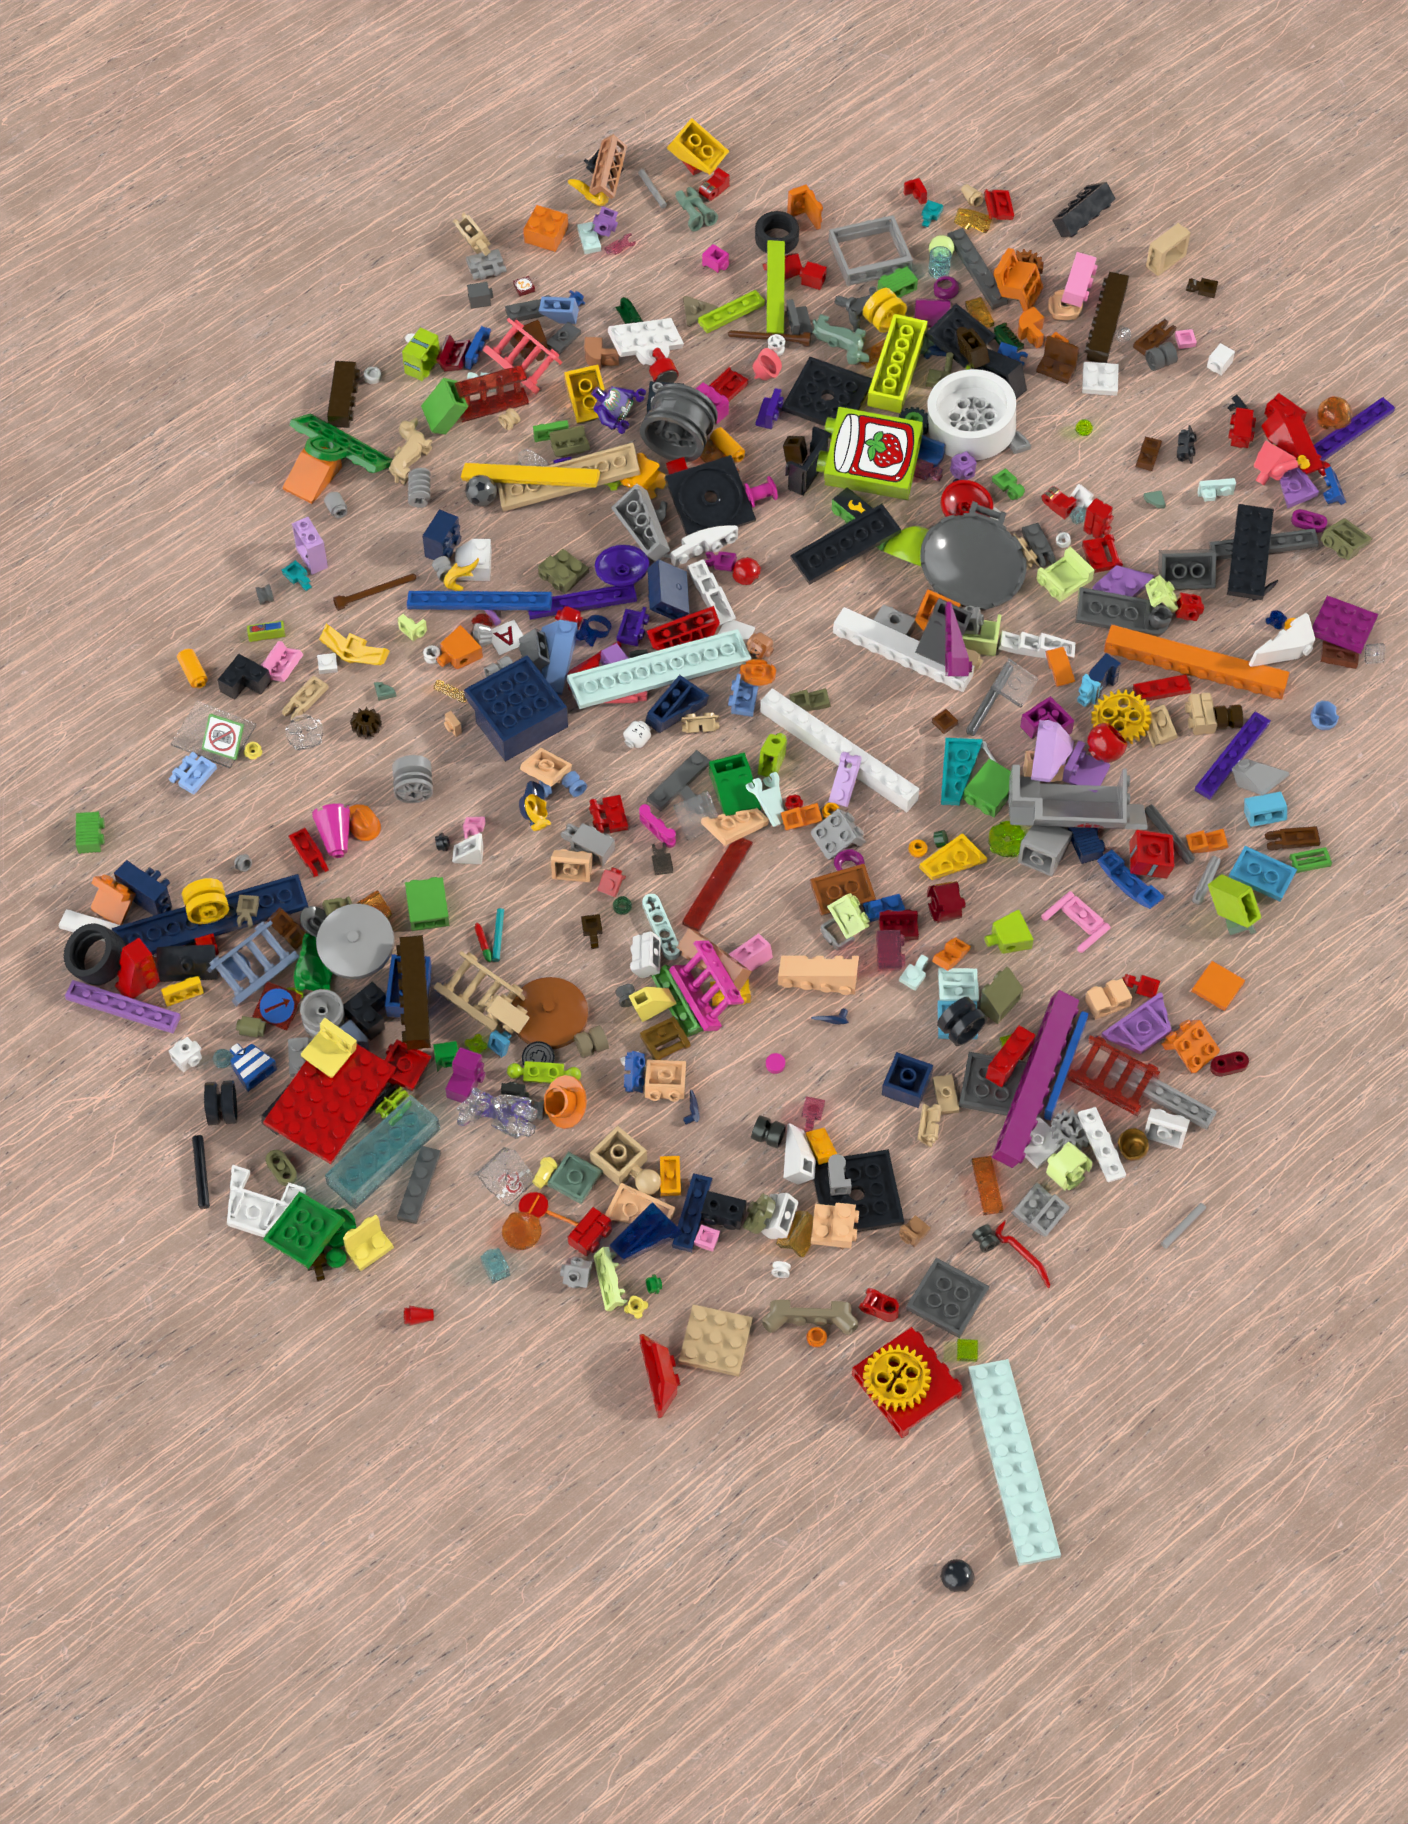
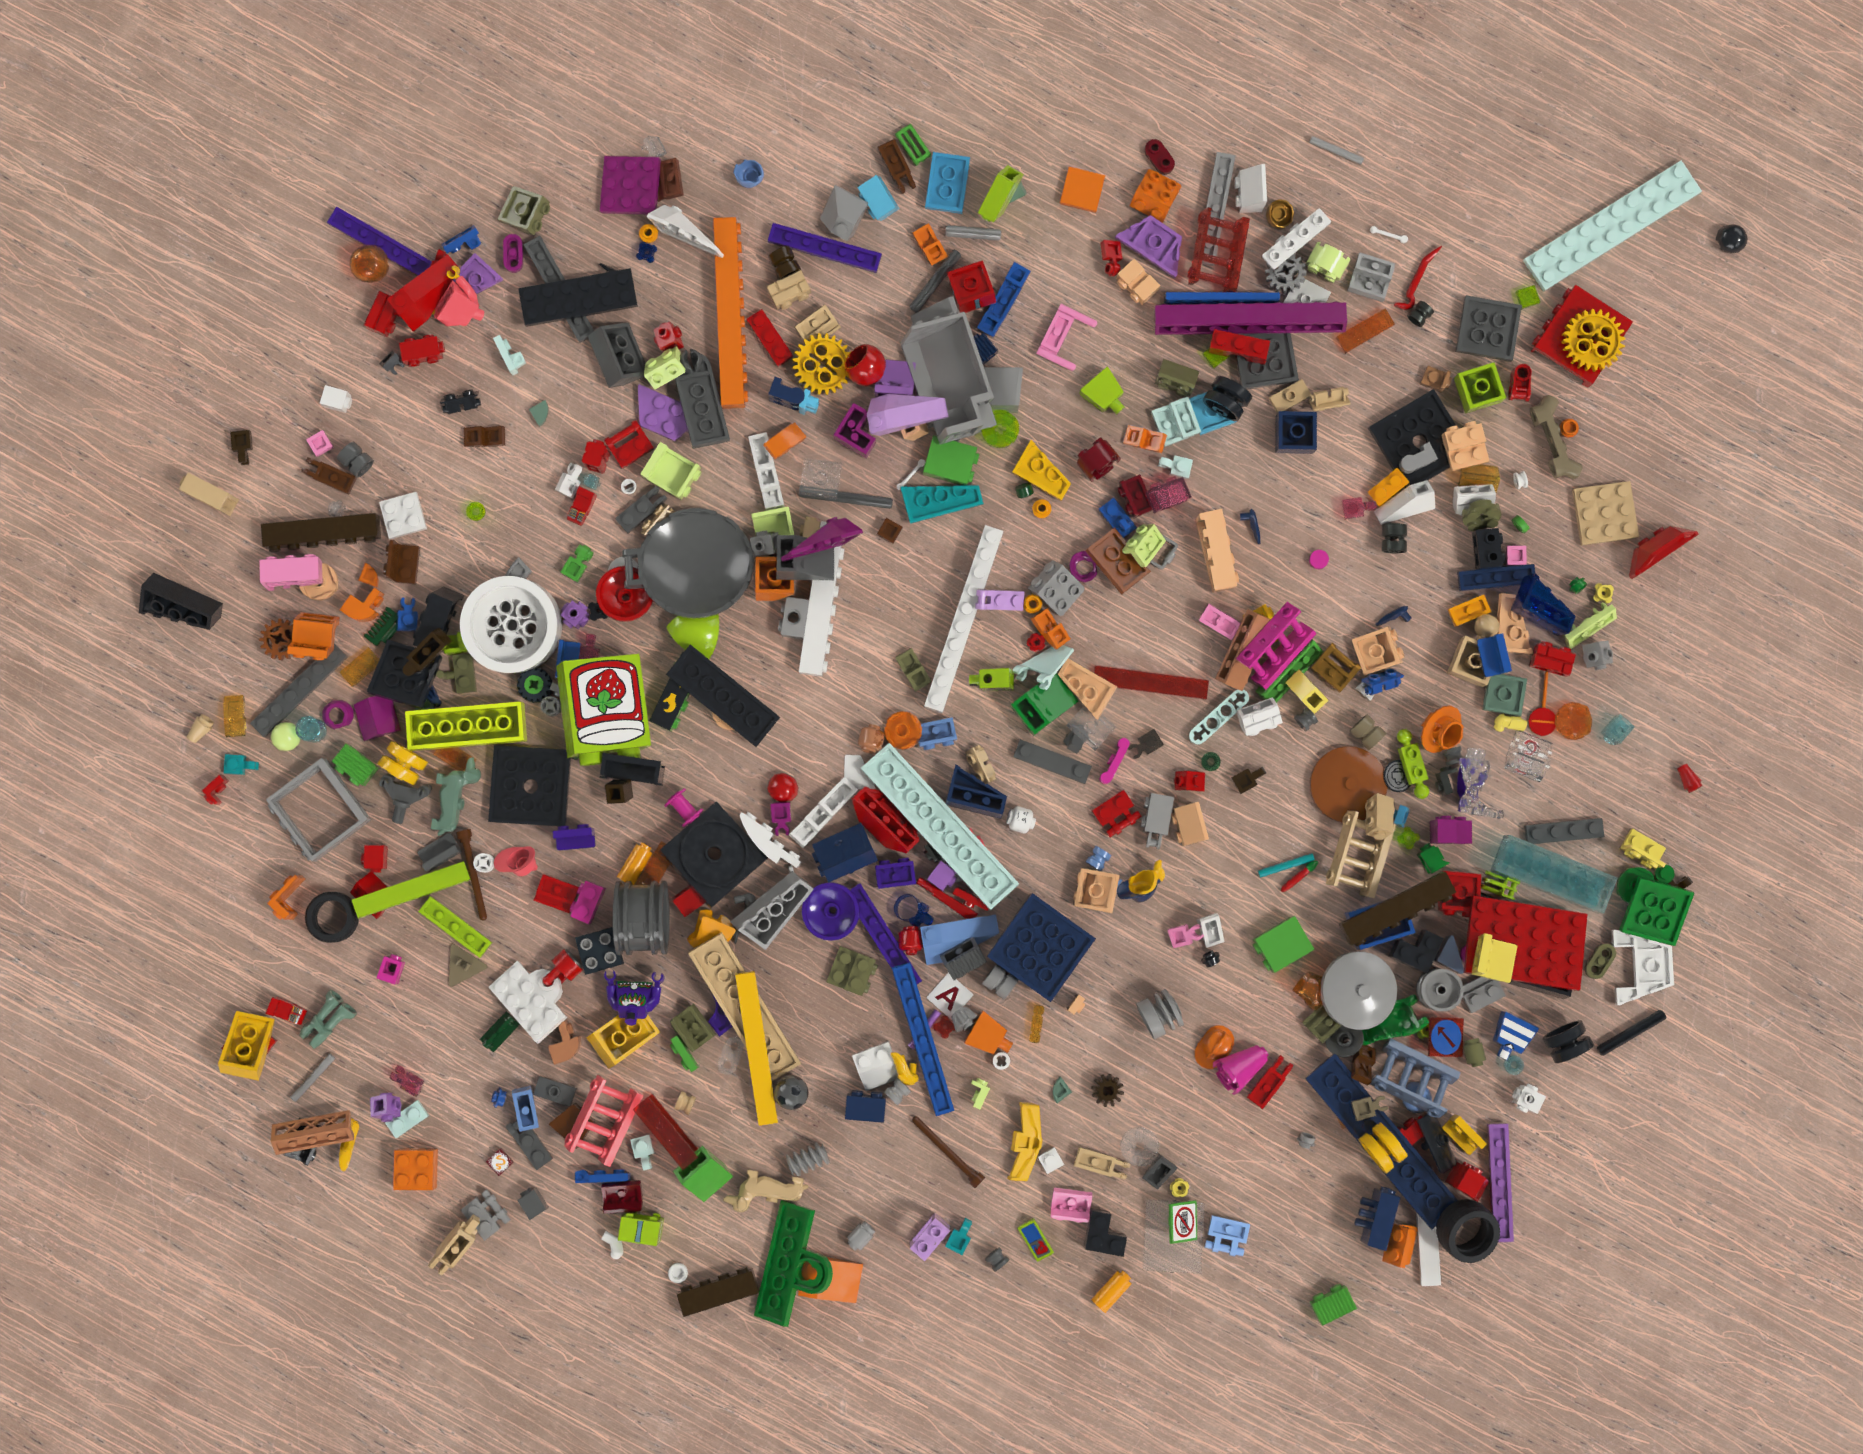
camera: 115 degrees left, 25 degrees up
(277, 741) = (1159, 1171): none -> dark grey slope
(615, 1165) = (1494, 655): none -> blue panel
(736, 1253) = (1520, 524): none -> bright green tile
(889, 1261) = (1479, 387): none -> lime brick
(999, 204) = (204, 694): red plate -> none
(1069, 1255) = (1403, 239): none -> white hinge

